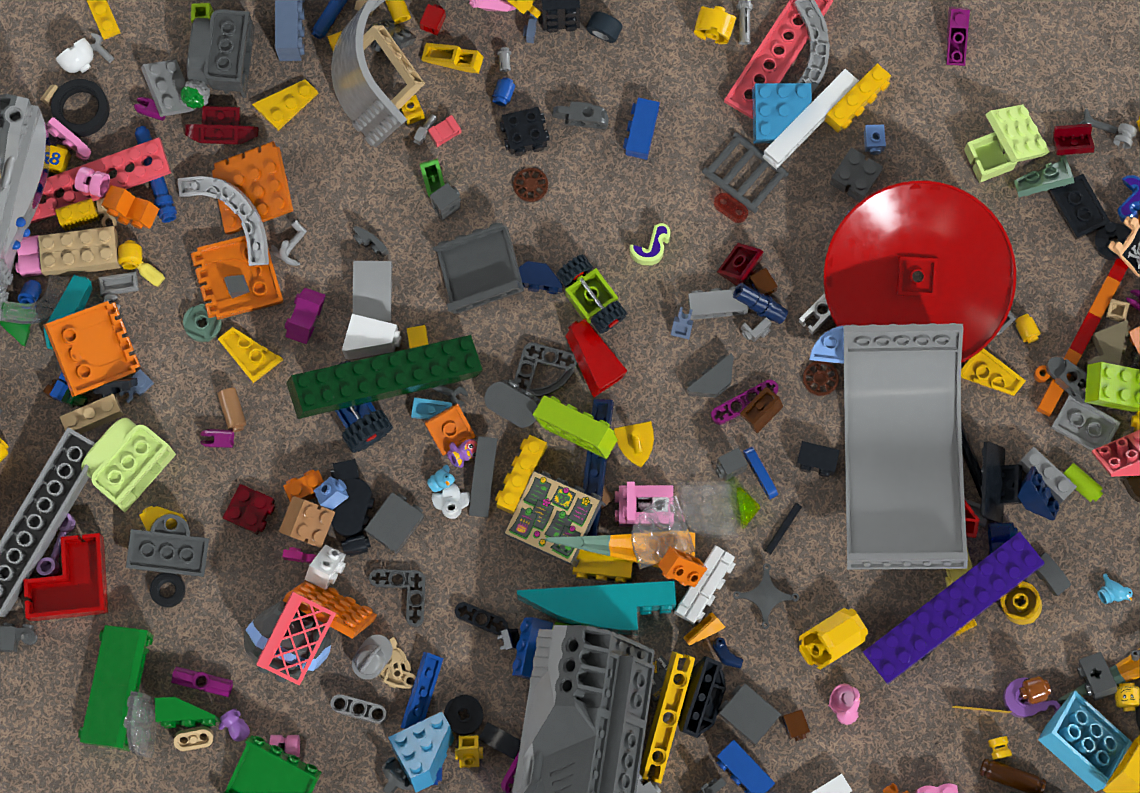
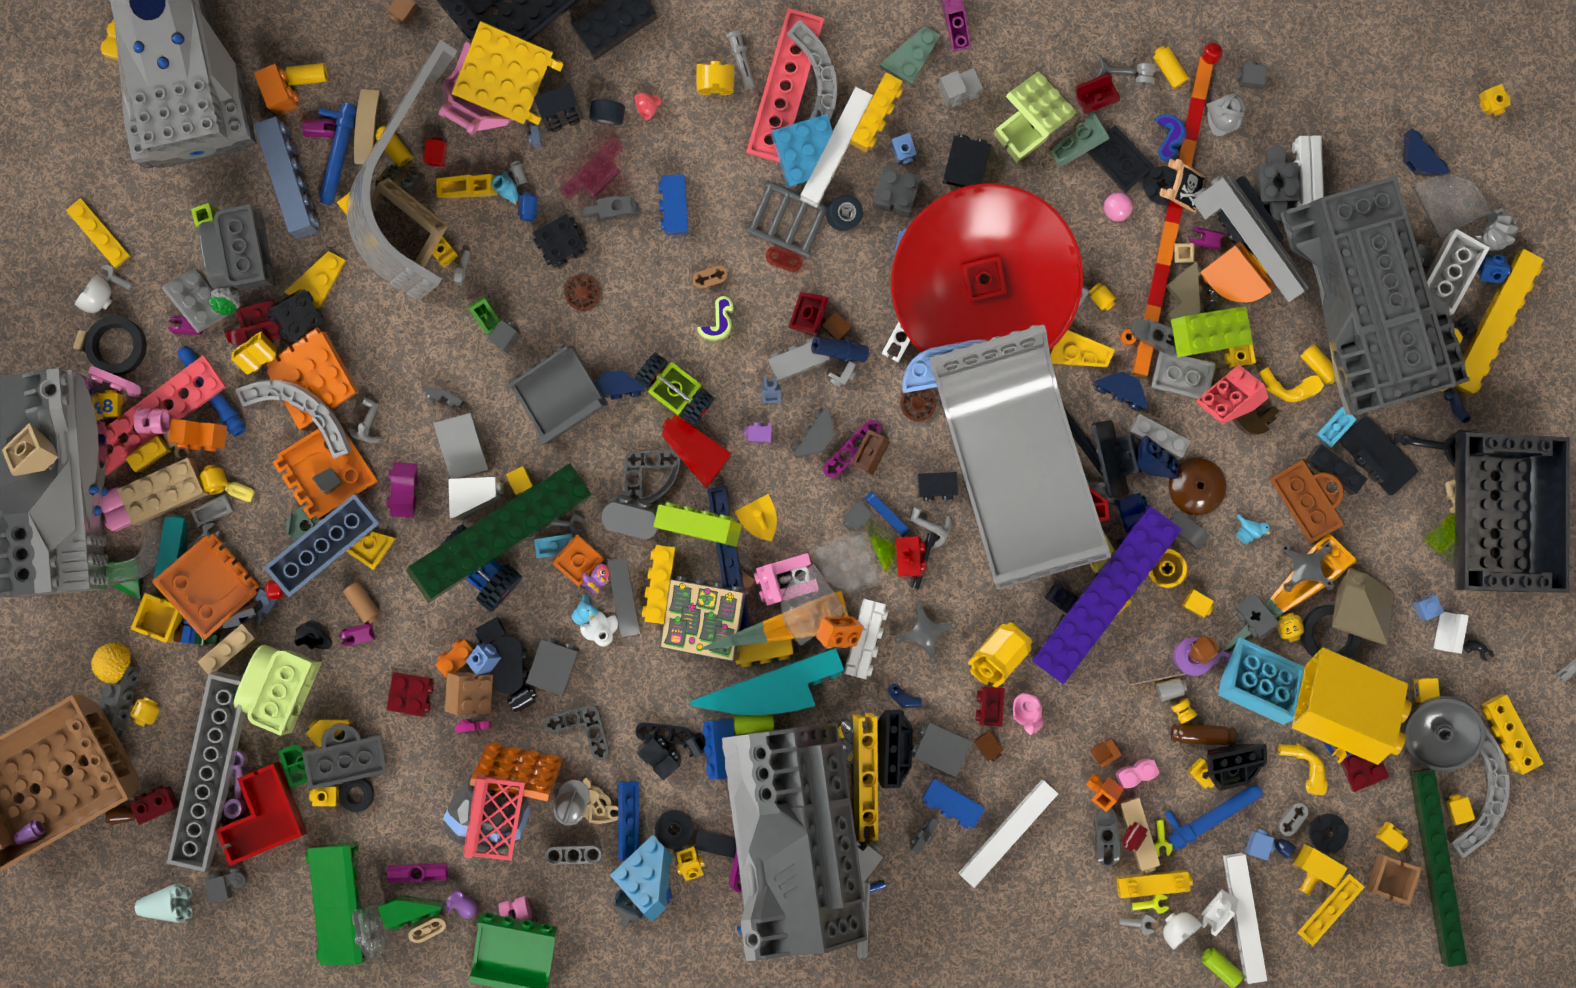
camera: 20 degrees left, 10 degrees up
(30, 292) = (128, 546): blue brick -> none
(35, 366) = (157, 616): none -> yellow piece
(116, 540) = (293, 761): none -> green slope
(137, 581) = (325, 796): none -> yellow brick
(154, 373) = (273, 590): none -> red piece
(175, 426) = (313, 635): none -> black piece
(206, 150) = (254, 353): none -> yellow brick
(213, 342) = (323, 544): none -> sand blue brick
(256, 126) = (295, 315): none -> black brick
(325, 567) = (500, 730): white brick -> none
(444, 131) = (482, 264): coral piece -> none
(471, 637) = (659, 755): none -> black brick
(488, 68) = (506, 187): none -> medium azure animal
(575, 79) = (595, 173): none -> clear pink bracket
(643, 31) = (647, 104): none -> coral piece
(655, 209) = (711, 281): none -> medium nougat beam
(659, 360) = (758, 433): none -> medium lavender brick
(707, 627) = (879, 678): light orange slope -> none
(771, 519) = (910, 557): none -> red brick
(803, 174) = (850, 209): none -> black wheel
(805, 499) = (941, 531): none -> light grey piece
(809, 687) = (991, 706): none -> dark red bracket
(906, 57) = (912, 55): none -> sand green wing
(907, 602) = (1060, 597): none -> black slope
(910, 766) = (1105, 752): none -> dark orange panel
(931, 163) = (966, 161): none -> black brick
(943, 97) = (959, 87): none -> light grey brick
(993, 723) = (1171, 689): none -> light grey brick
(1023, 420) = (1123, 388): none -> dark blue slope
(1042, 648) = (1198, 604): none -> yellow brick
(1063, 544) = (1185, 491): none -> reddish brown dish
(1065, 249) = (1118, 206): none -> bright pink hair
(1085, 484) = (1195, 433): lime brick -> none

